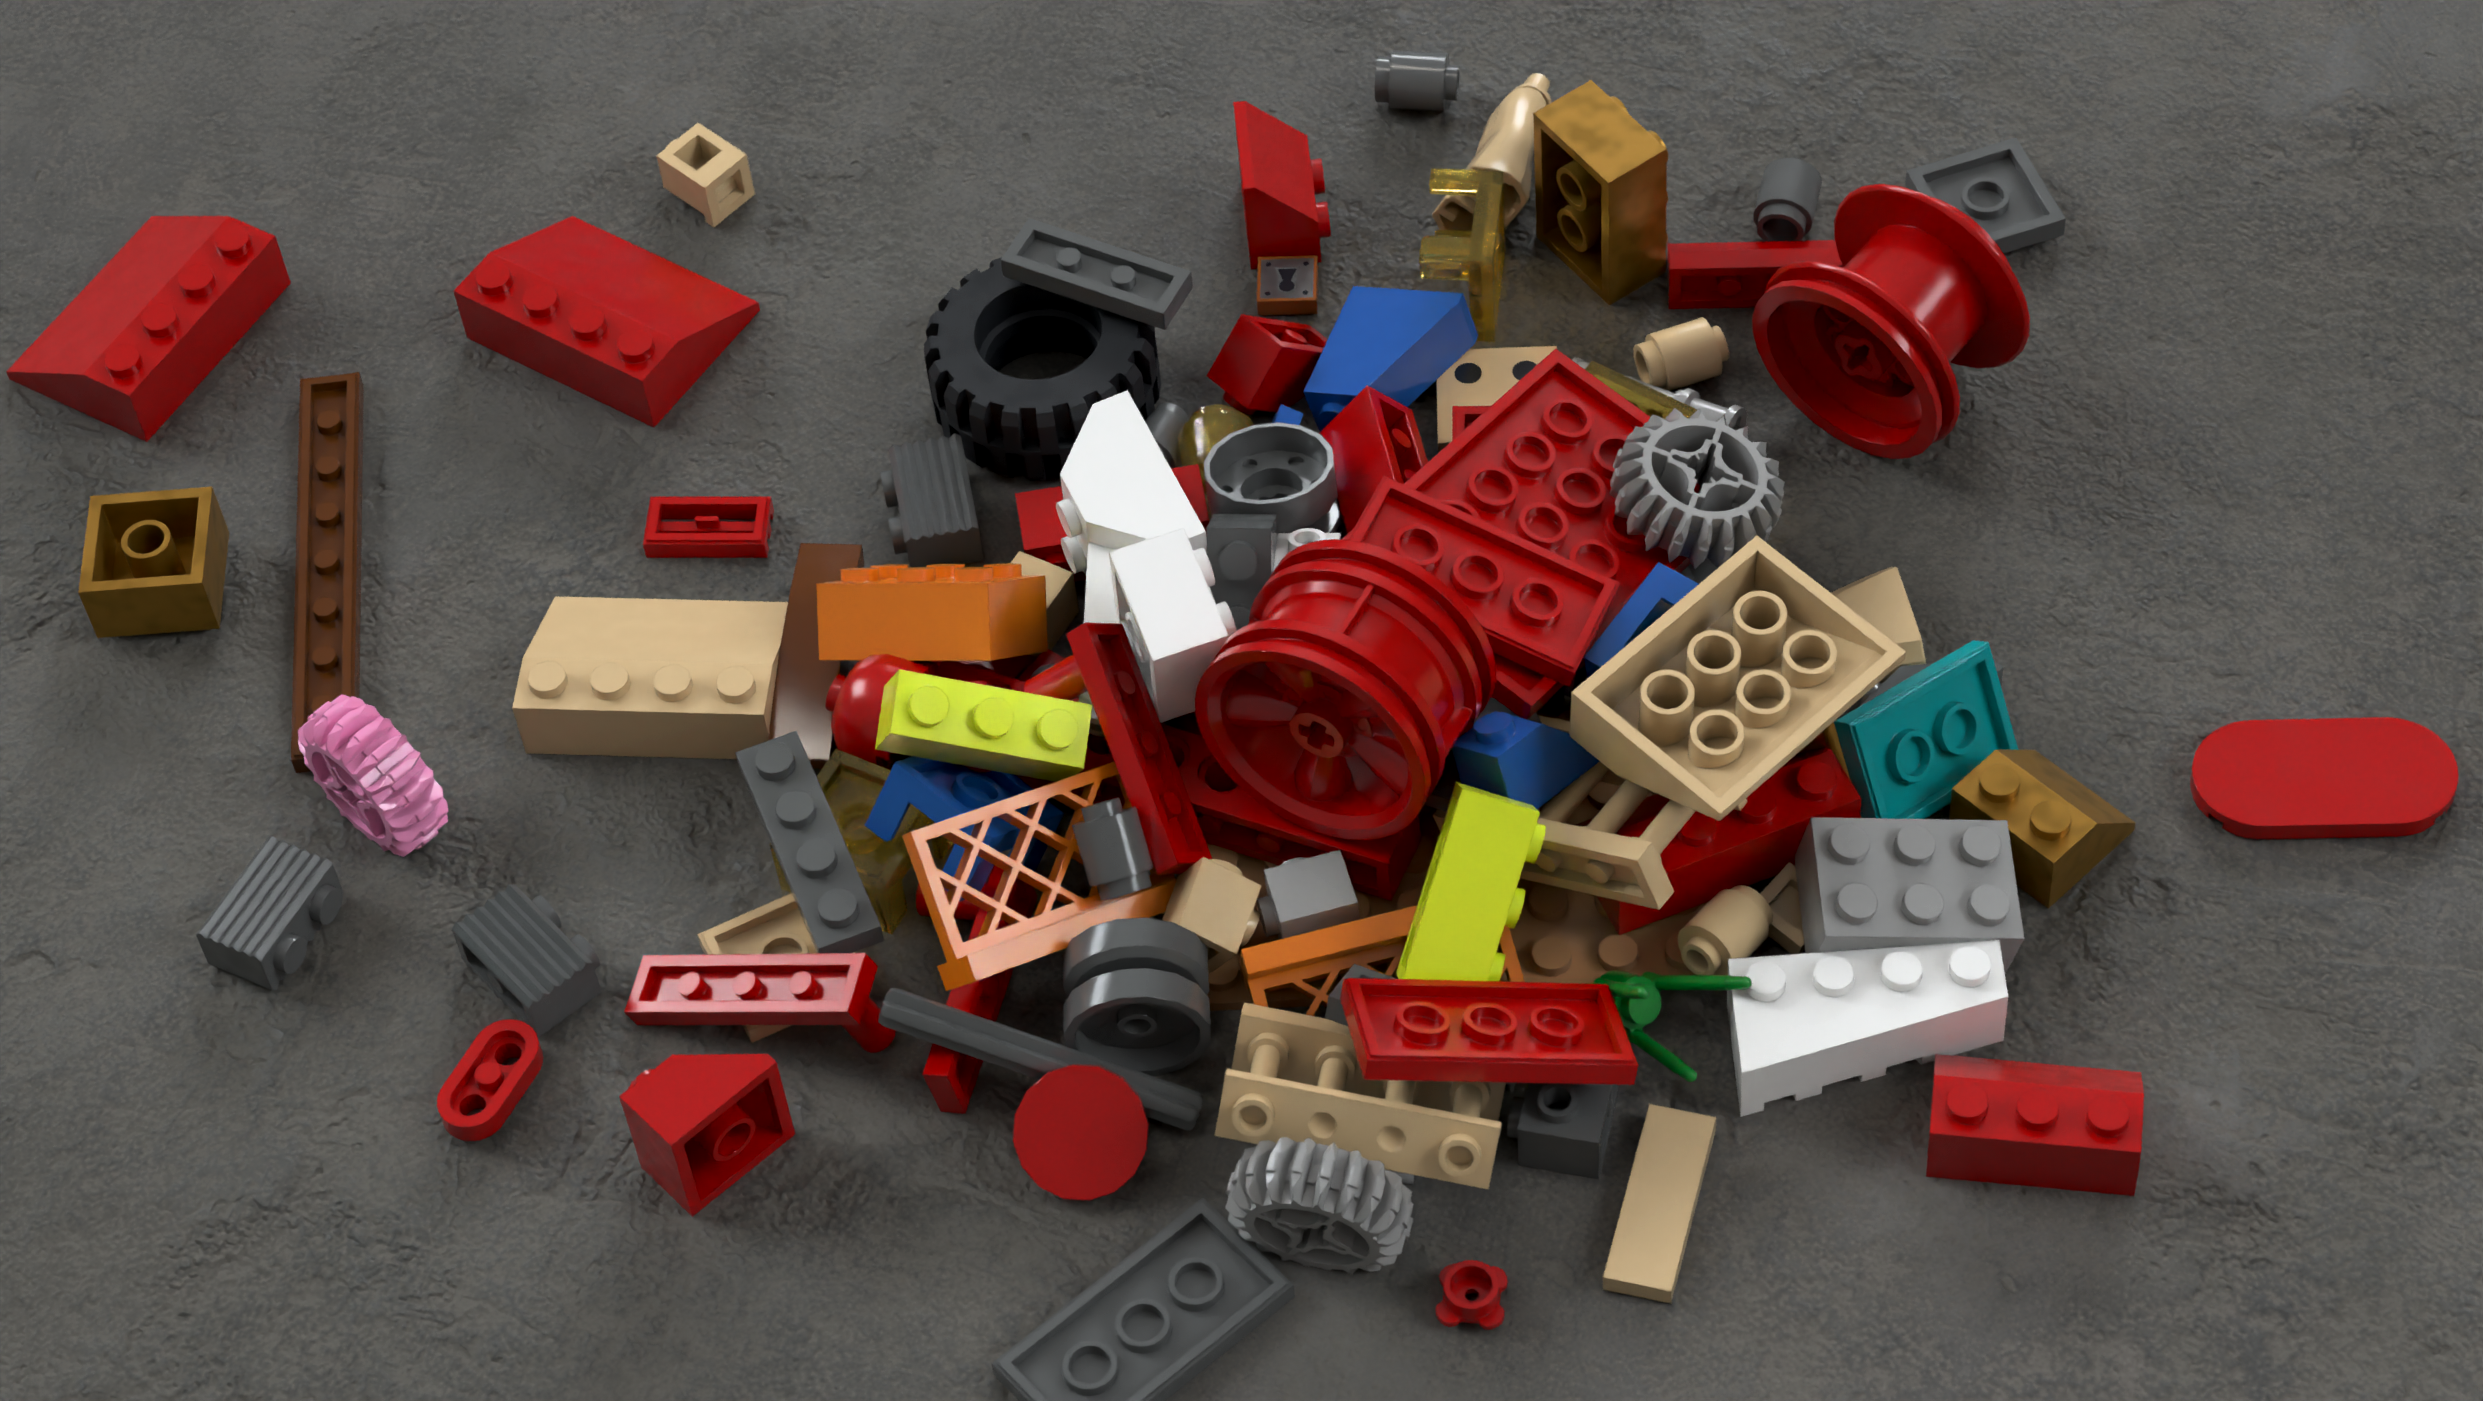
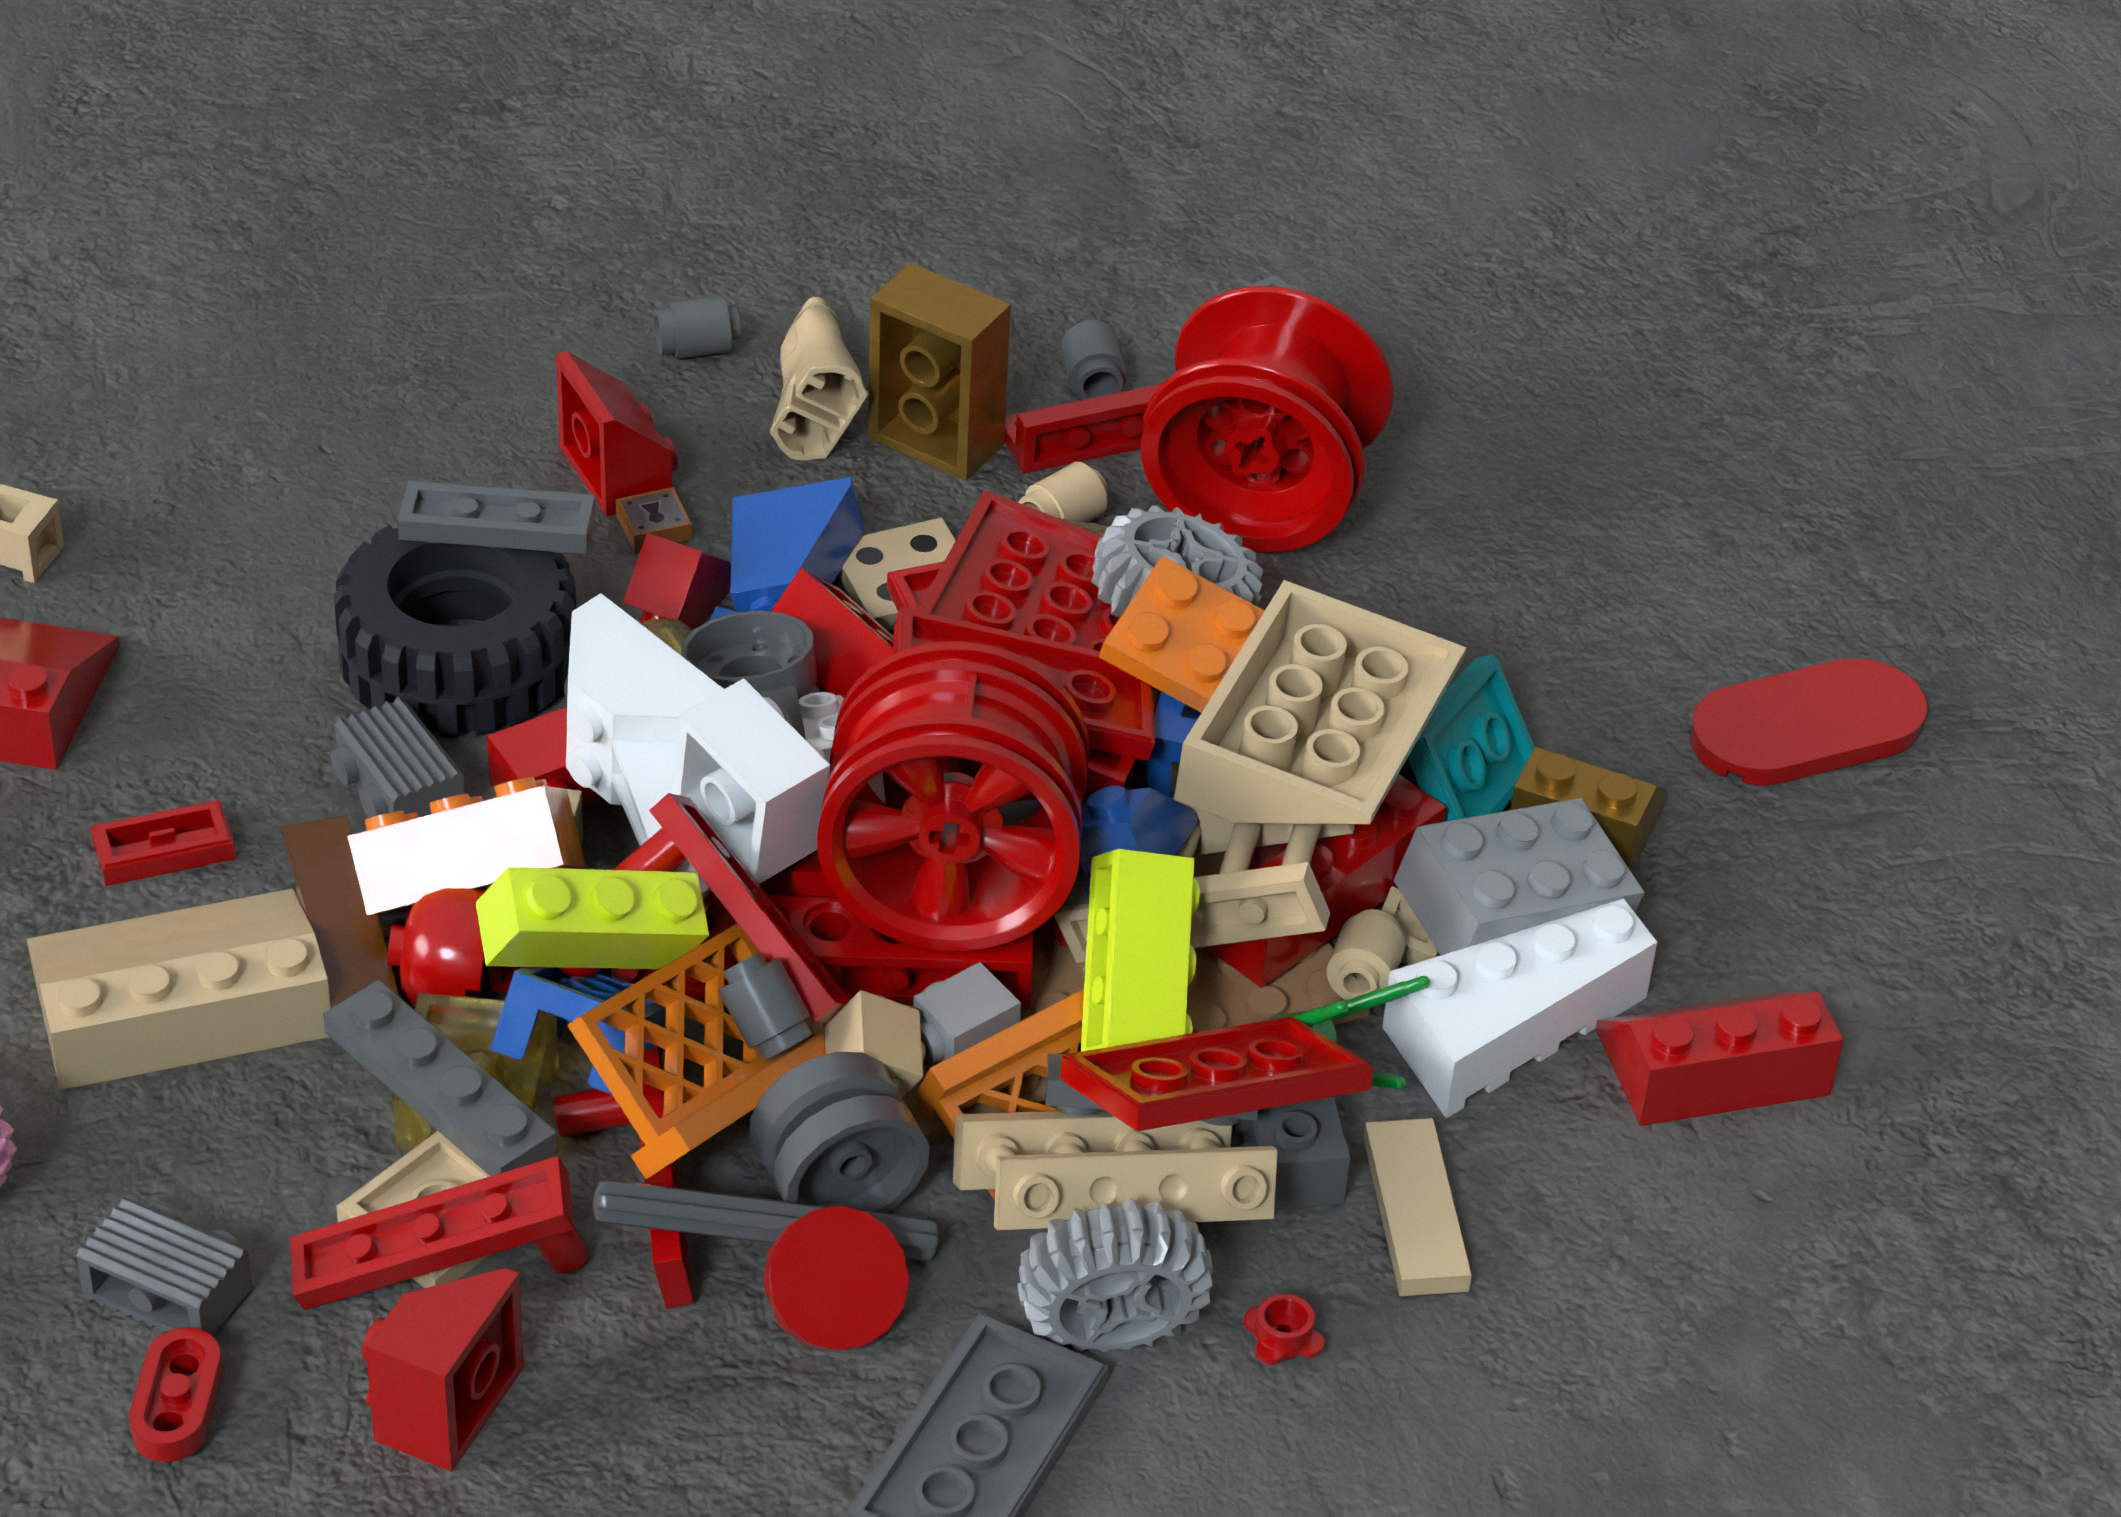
camera: 30 degrees left, 10 degrees down
(1473, 254) = (839, 447): clear yellow panel -> none
(1647, 557) = (1180, 633): none -> orange plate

